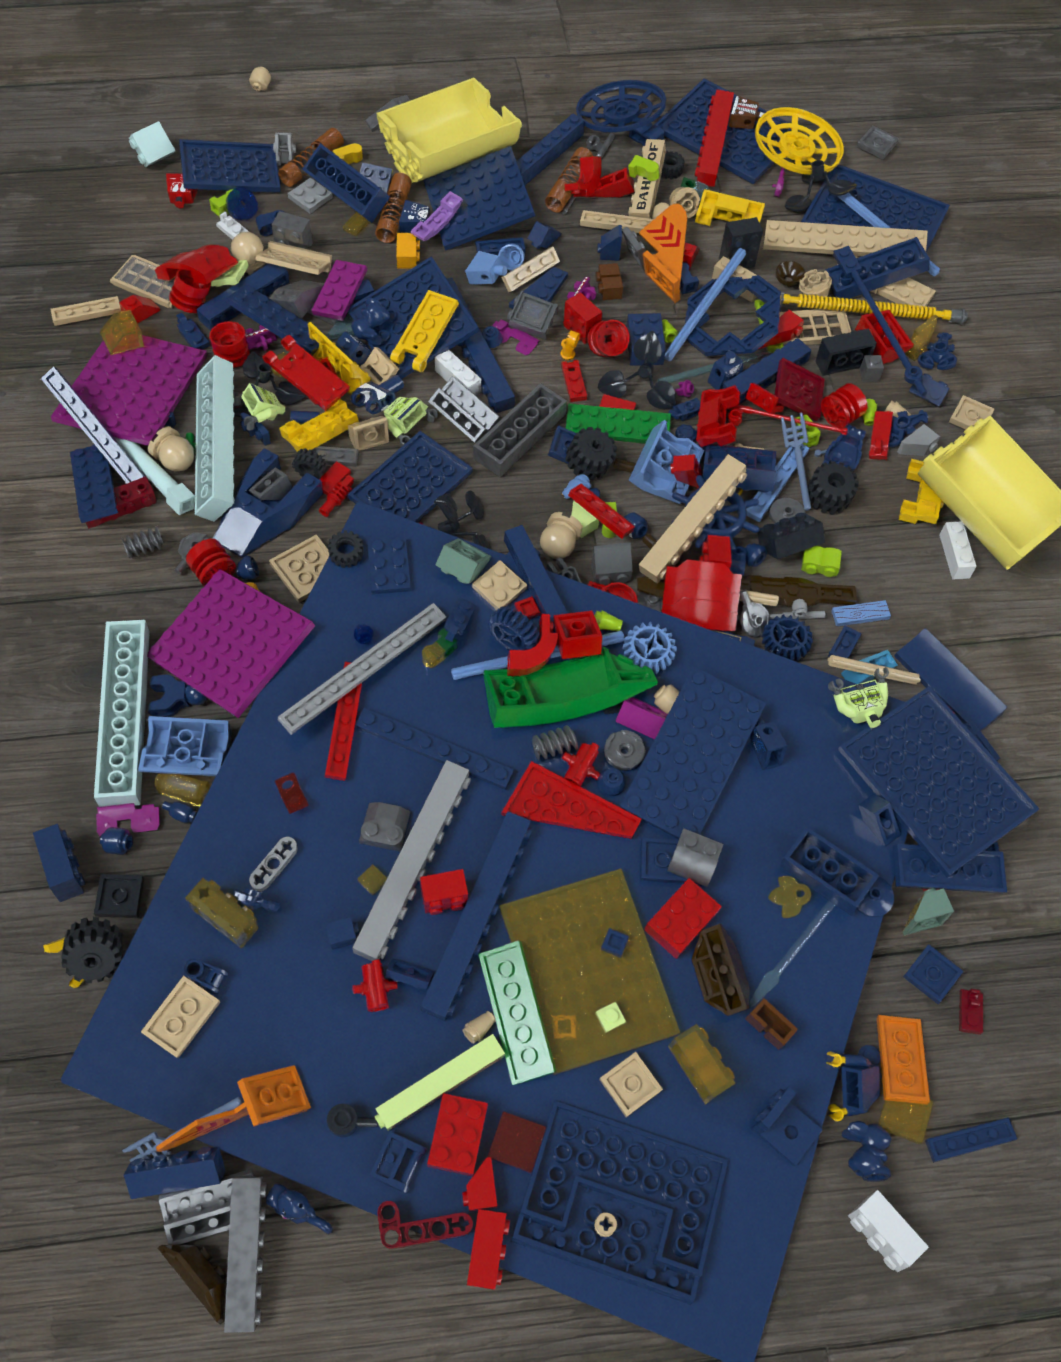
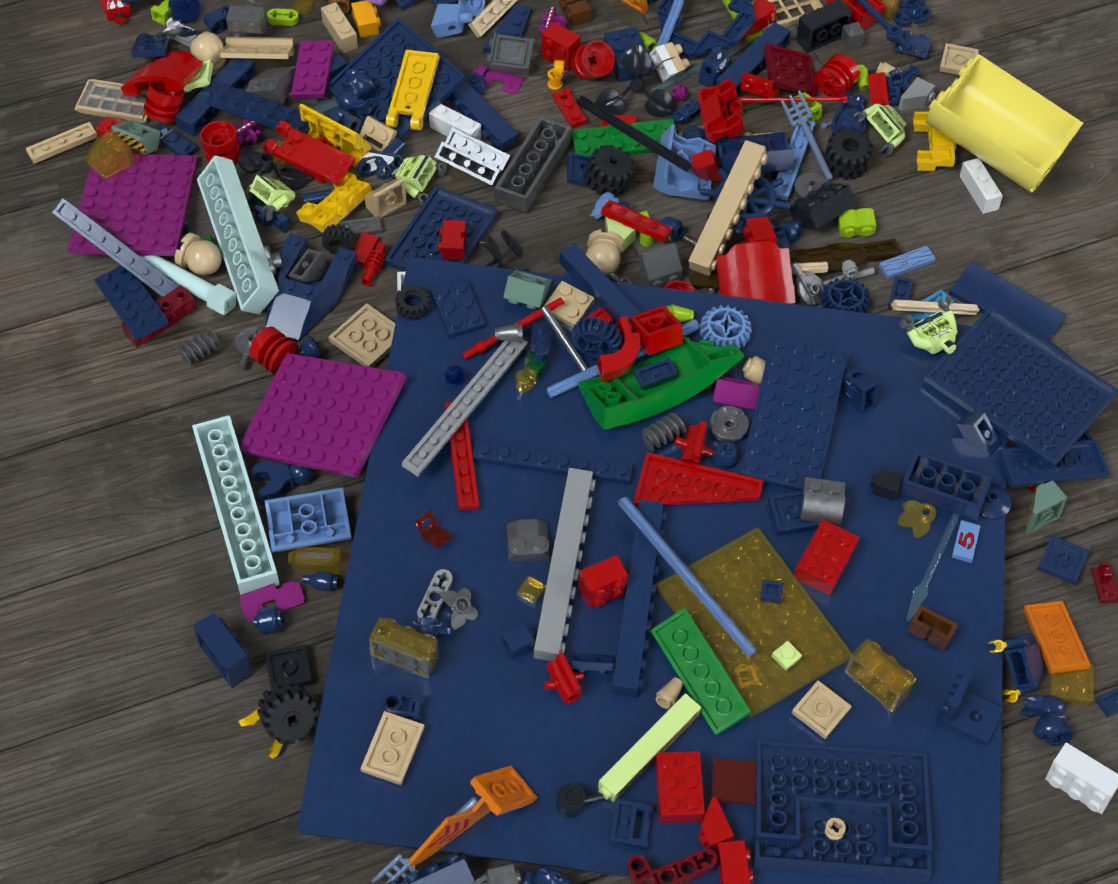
camera: 10 degrees left, 5 degrees down
(155, 319) = (138, 136): none -> sand green slope
(198, 234) = (151, 45): none -> dark blue plate
(228, 227) = (179, 31): none -> black piece
(238, 472) = (273, 259): none -> flat silver animal
(294, 881) = (460, 606): none -> flat silver animal
(331, 233) = (283, 17): none -> lime beam
(379, 254) = (339, 28): none -> tan brick
(398, 610) = (481, 346): none -> red bar
(417, 487) = (453, 240): none -> red brick
(429, 604) = (509, 333): none -> flat silver cone
(483, 621) = (564, 338): none -> flat silver bar
(531, 908) = (687, 577): none -> medium blue axle
(564, 679) = (655, 373): none -> dark blue plate
(626, 422) = (635, 134): none -> black axle
(682, 354) = (668, 61): none -> hips
(720, 971) = (873, 593): dark brown wedge -> none
(767, 853) = (886, 484): none -> black brick
(834, 934) = (966, 541): none -> medium blue tile
(880, 465) = (886, 122): none -> yellowish green torso

